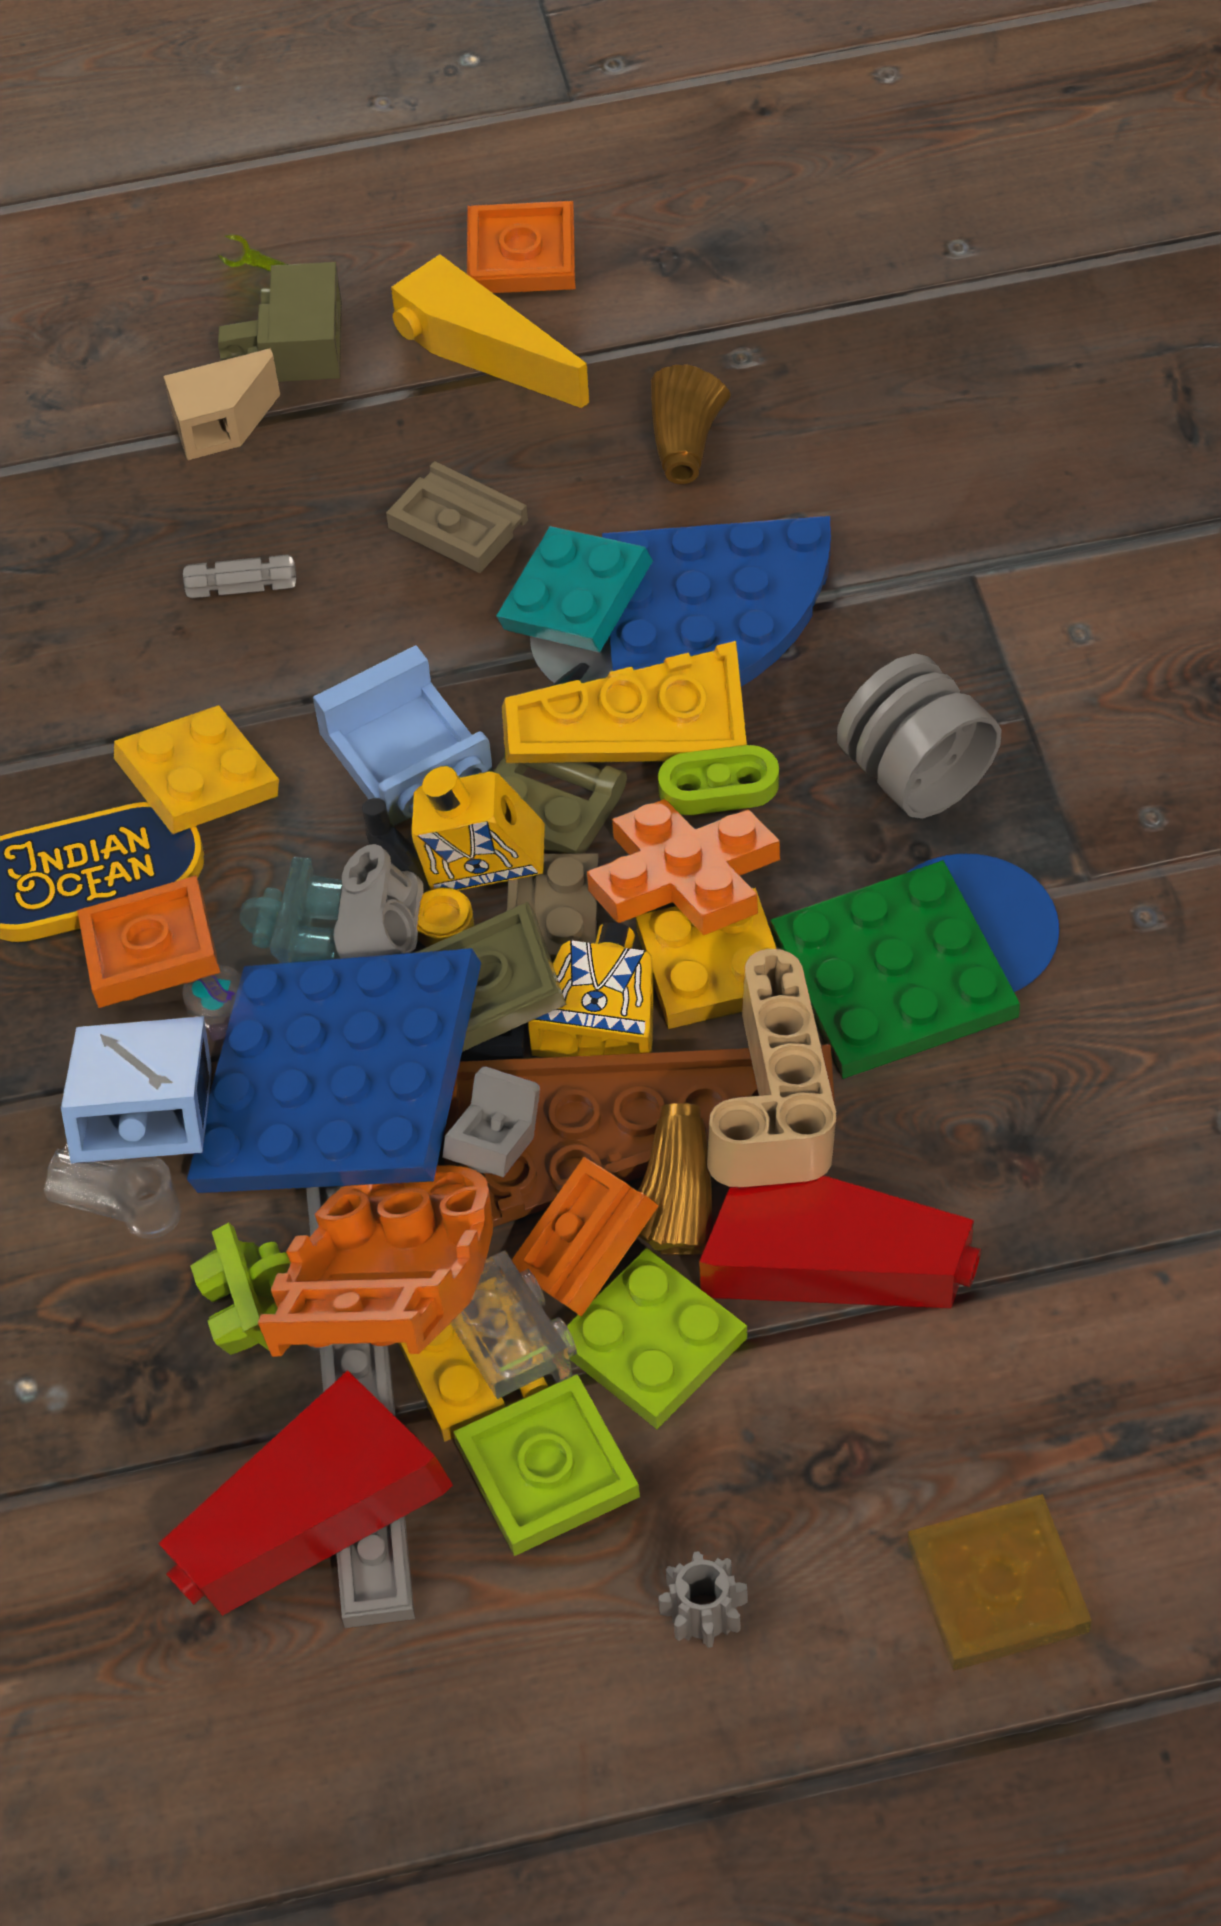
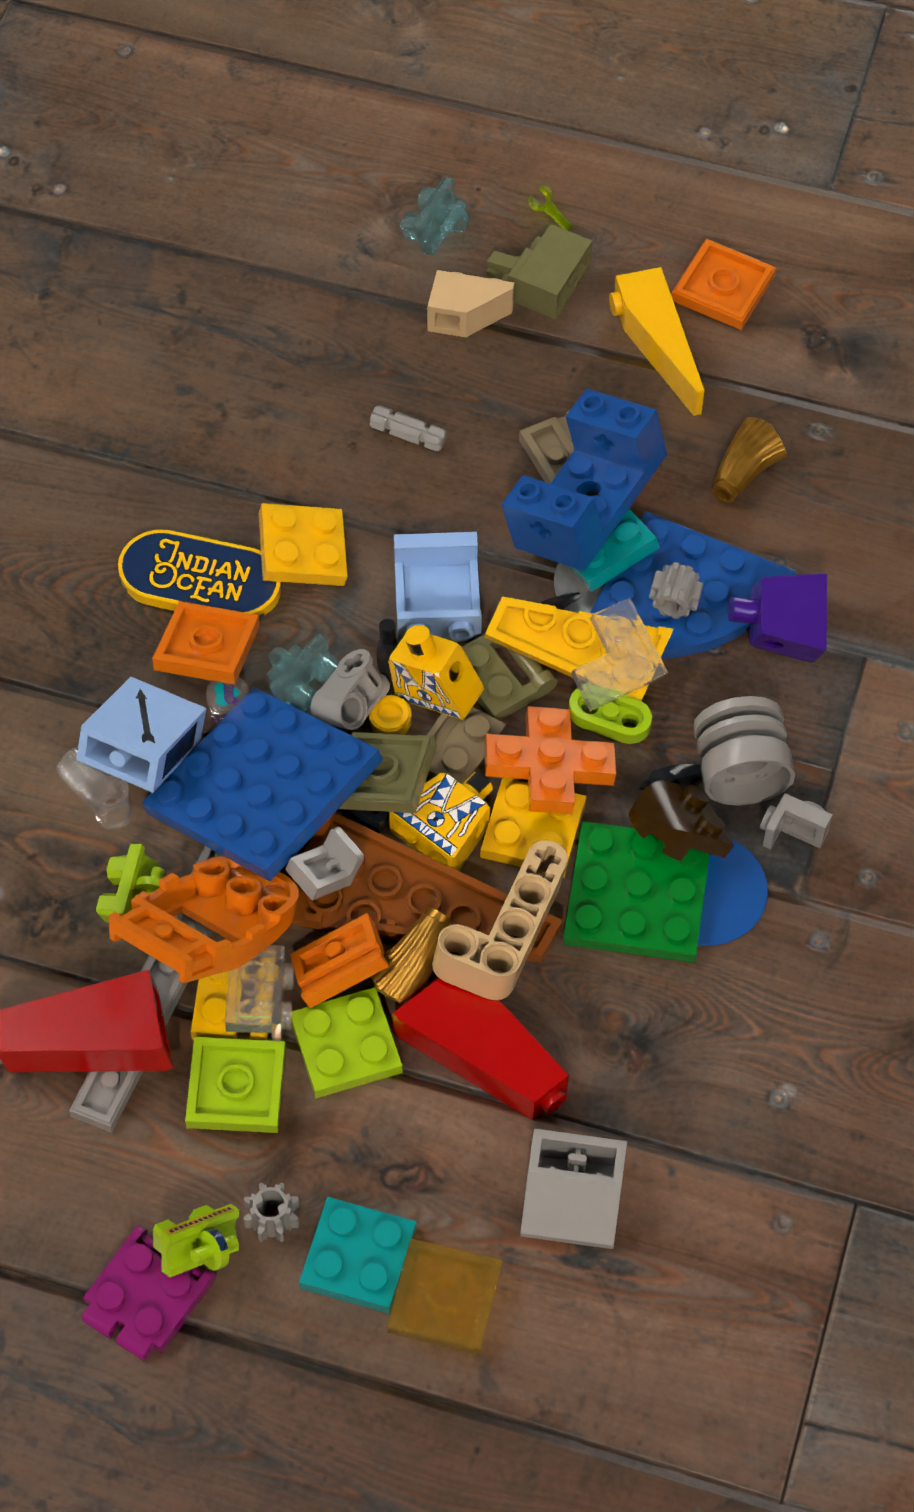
camera: 25 degrees right, 5 degrees up
(117, 324) = (439, 216): none -> clear light blue hips
(529, 522) = (613, 454): none -> blue plate
(600, 1803) = (142, 1298): none -> magenta plate
(635, 1687) = (201, 1240): none -> lime hips
(709, 699) = (629, 659): none -> clear plate
(711, 594) = (676, 590): none -> light grey gear
(844, 816) = (680, 774): none -> black bar
(848, 1594) = (357, 1255): none -> teal plate
(859, 564) = (786, 615): none -> dark purple torso
(898, 852) = (680, 820): none -> dark brown slope
(1031, 788) = (797, 818): none -> light grey bracket
(1071, 1355) = (573, 1188): none -> light grey slope

